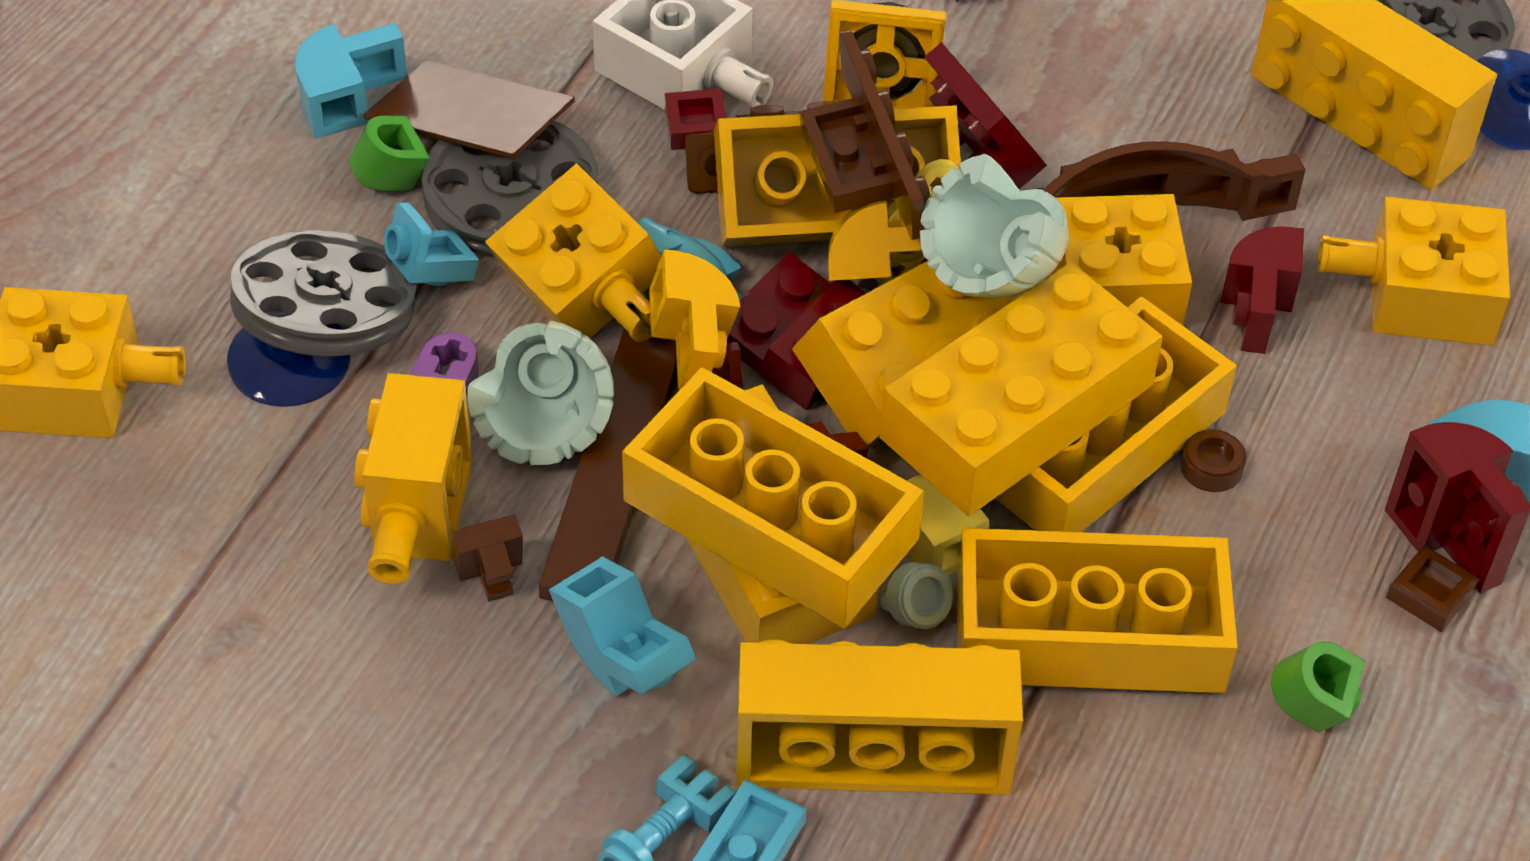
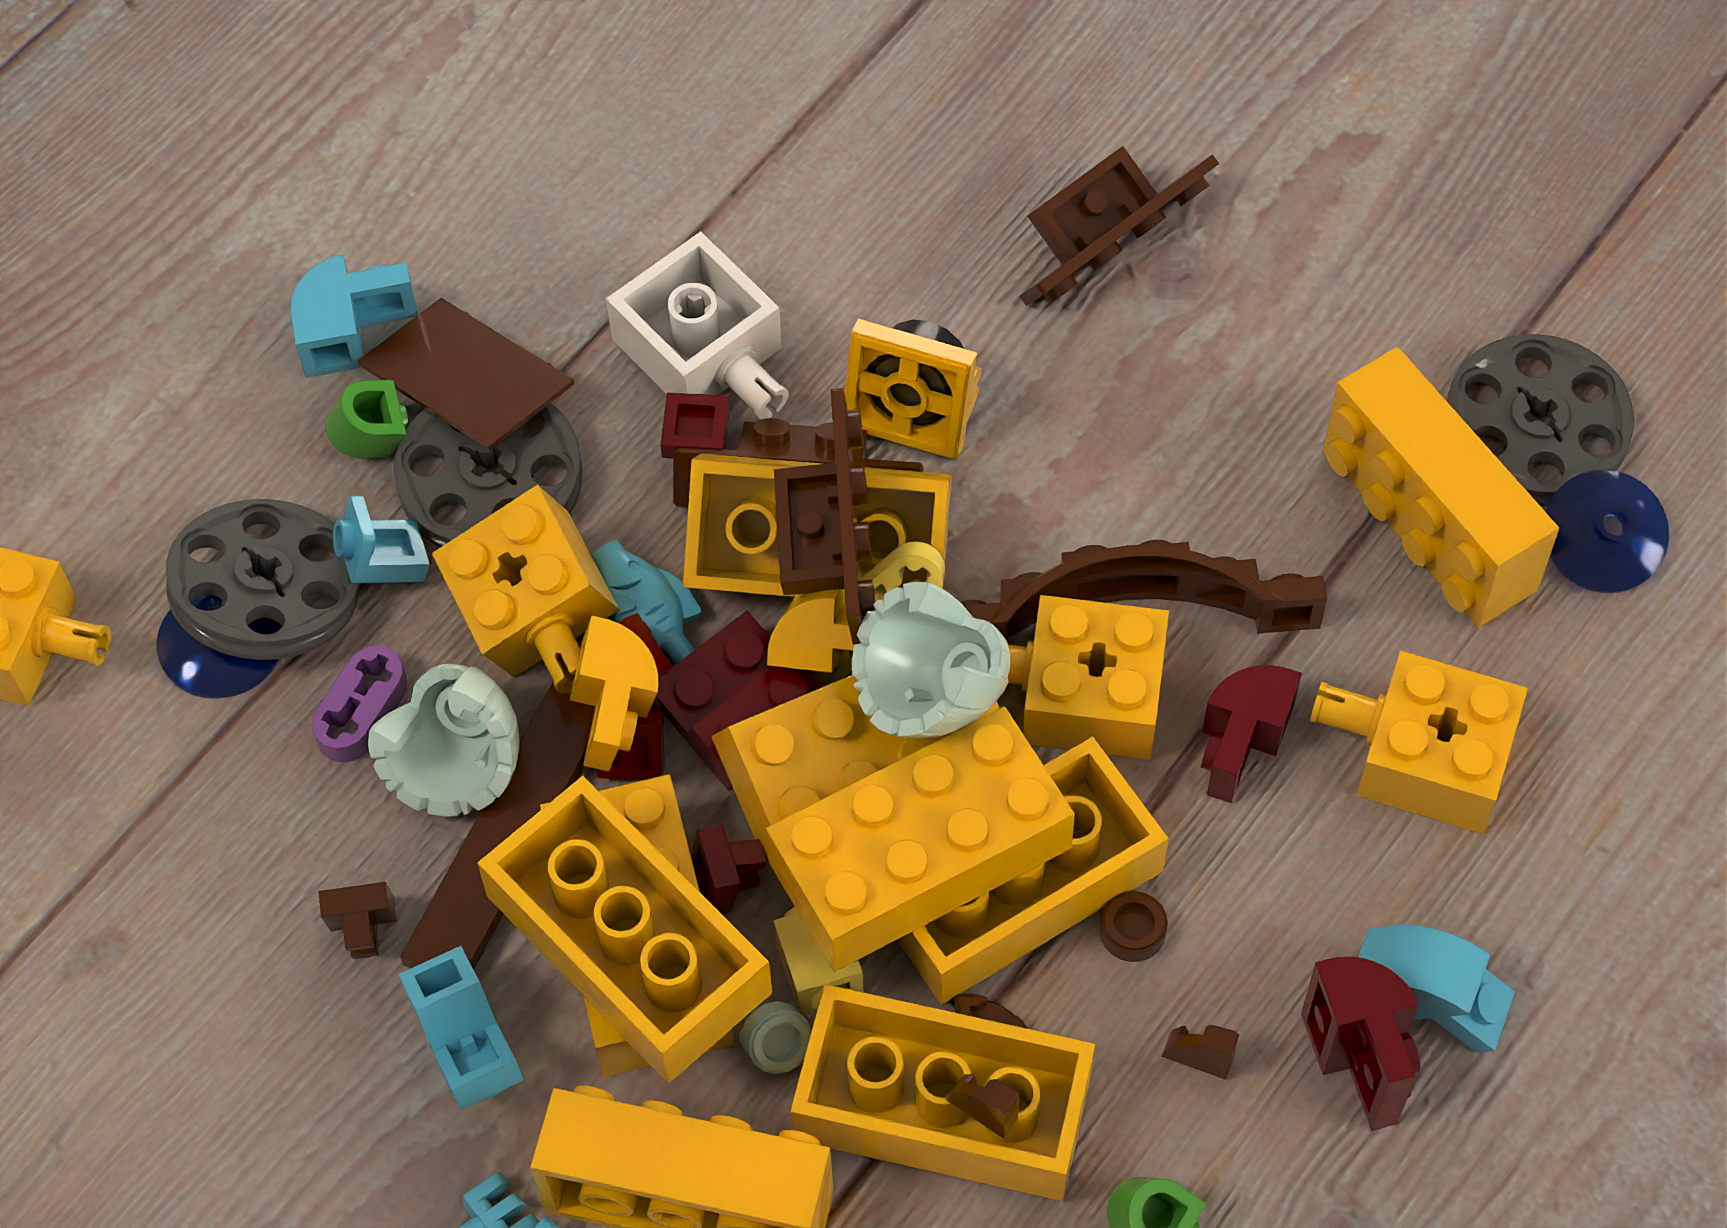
camera: 15 degrees right, 10 degrees up
(414, 472) = (297, 817): yellow brick -> none
(980, 119) = (991, 485): dark red plate -> none
(1150, 594) = (992, 1105): none -> reddish brown tile
(1314, 546) = (1207, 1052): none -> reddish brown tile
(1432, 588) = (1319, 1118): reddish brown tile -> none

